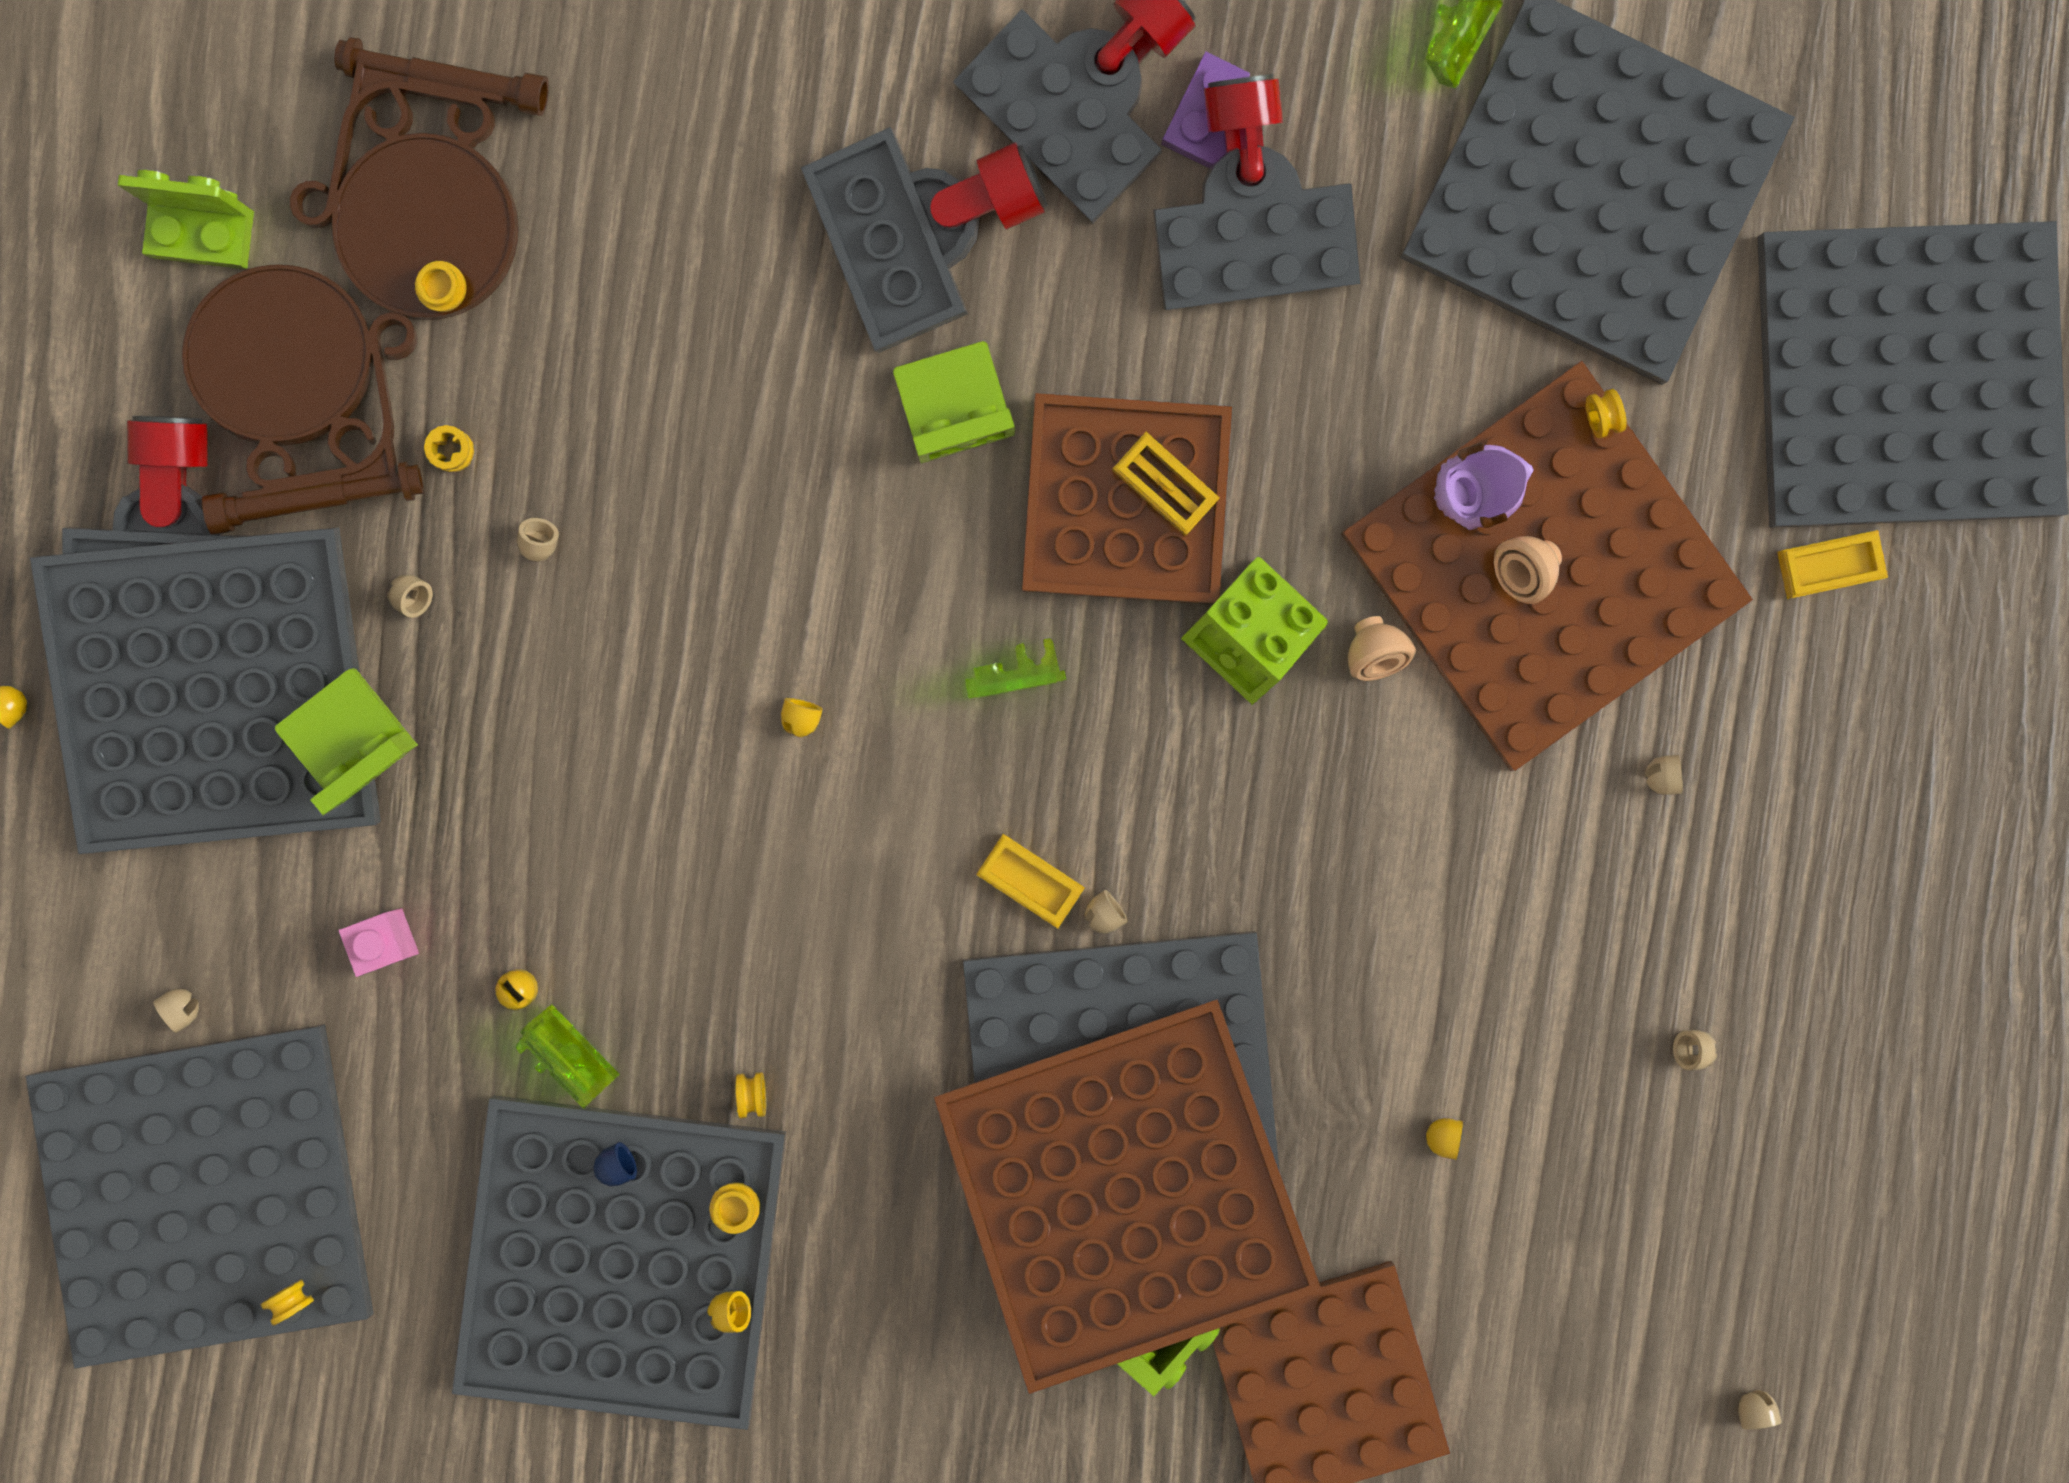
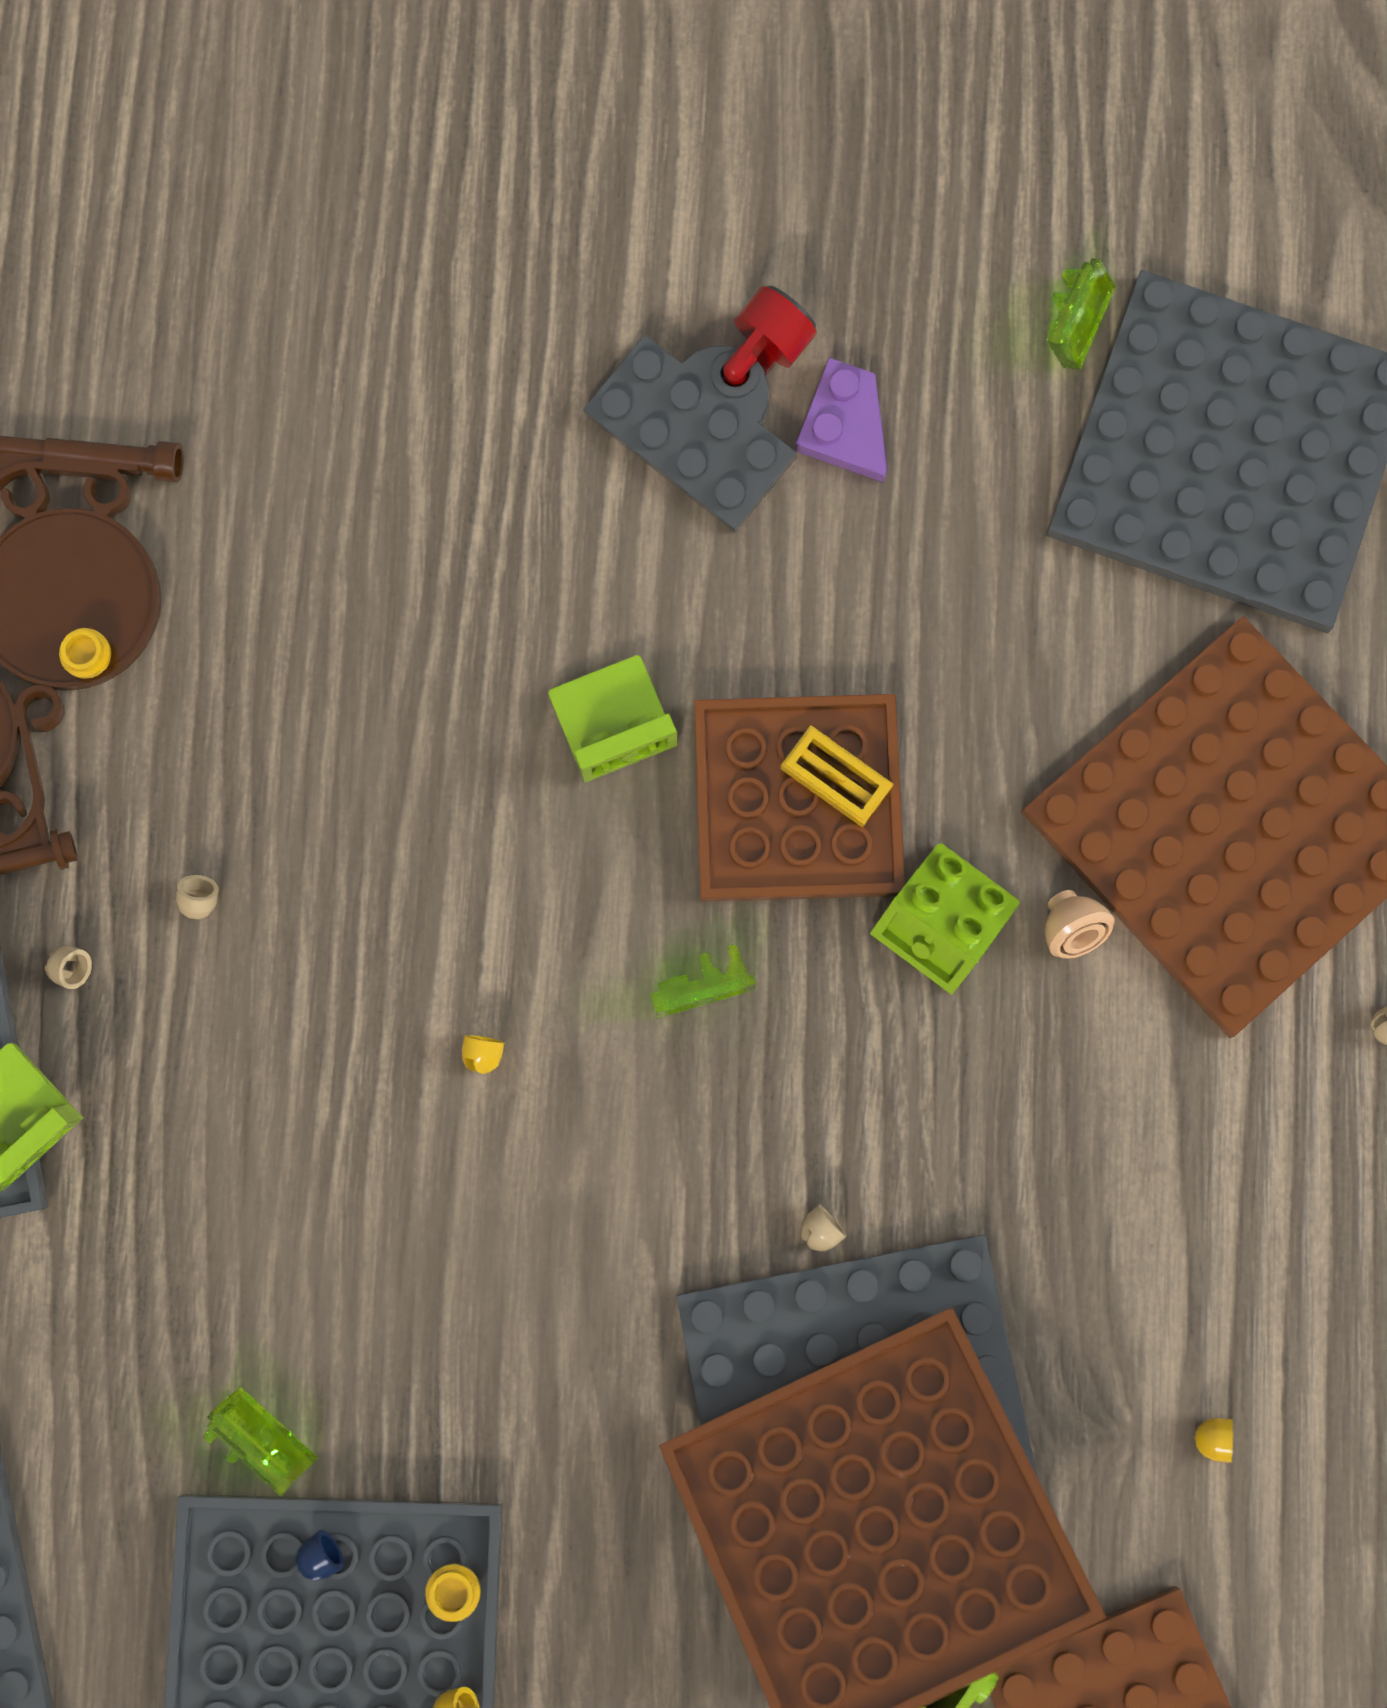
camera: 10 degrees left, 10 degrees down
(378, 942) = (51, 1335): bright pink brick -> none
(440, 436) = (91, 804): yellow bush -> none
(523, 983) = (209, 1367): yellow hinge -> none
(751, 1095) = (461, 1465): yellow bush -> none
(908, 228) = (550, 553): dark grey plate -> none
(1030, 881) = (739, 1203): yellow tile -> none
(1255, 221) = (896, 511): dark grey plate -> none
(1482, 485) = (1160, 743): lavender hair -> none
(1527, 568) = (1218, 823): light nougat brick -> none
(1606, 413) = (1275, 661): yellow bush -> none

